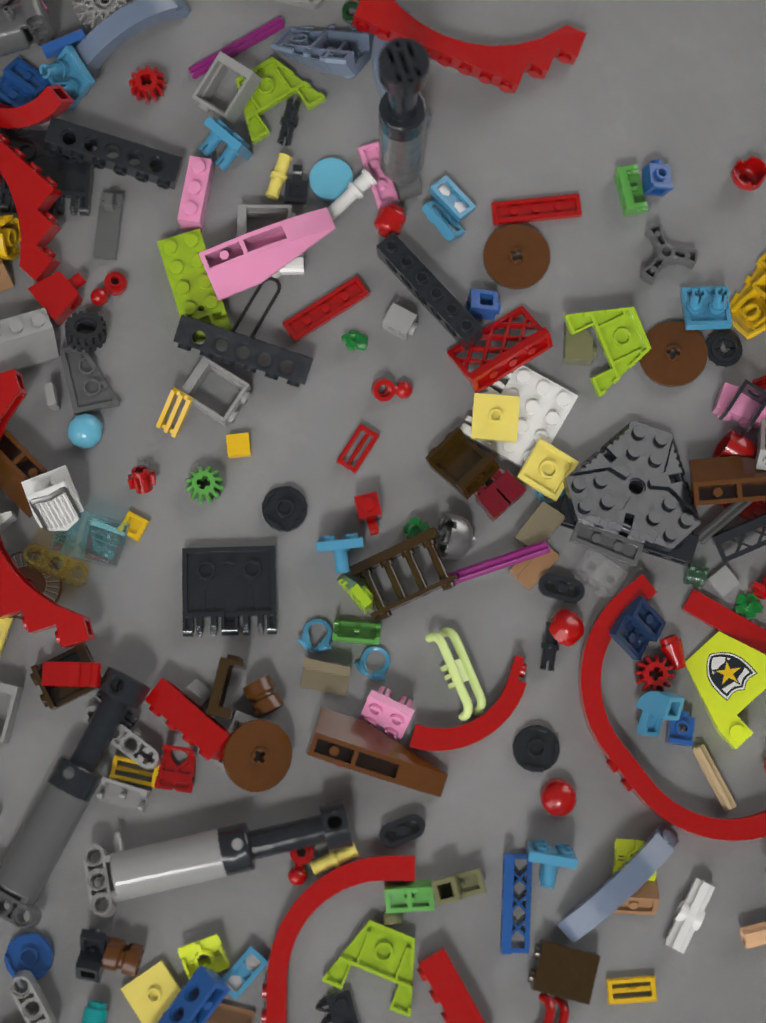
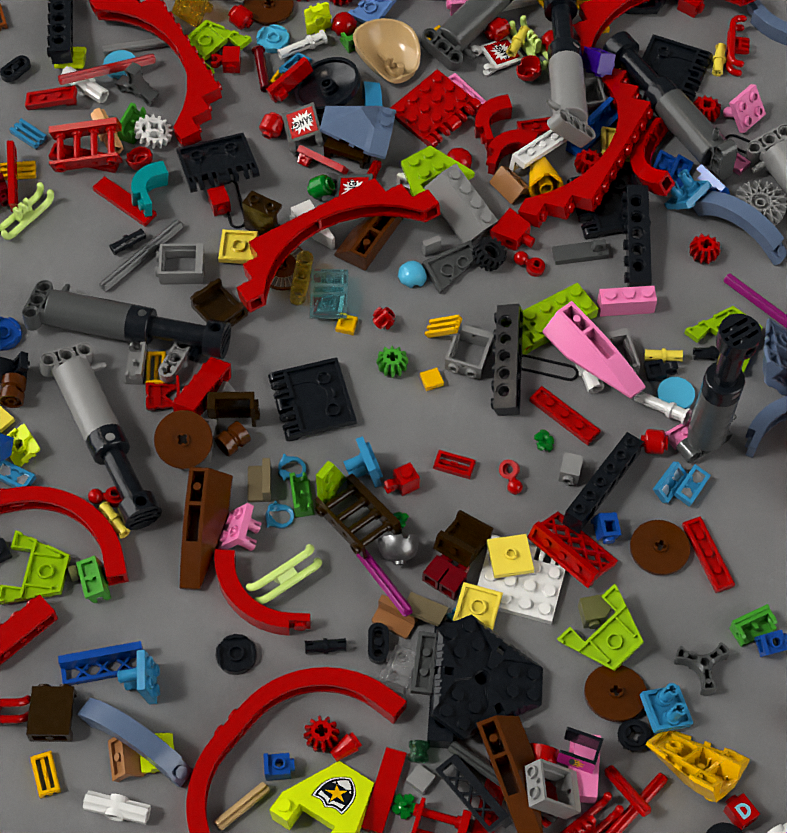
camera: 75 degrees right, 20 degrees down
(53, 500) = (348, 258): white piece -> none
(71, 674) = (218, 301): red piece -> none
(212, 80) = (720, 288): light grey window -> none
(222, 133) = (678, 309): dark azure plate -> none
(284, 509) = (389, 423): black tile -> none
(402, 830) = (147, 565): black plate -> none
(458, 886) = (107, 611): olive brick -> none
(558, 797) = (198, 679): red hair -> none
(566, 627) = (344, 652): red hair -> none
(637, 627) = (358, 708): dark blue slope -> none
(655, 708) = (287, 738): dark azure brick -> none

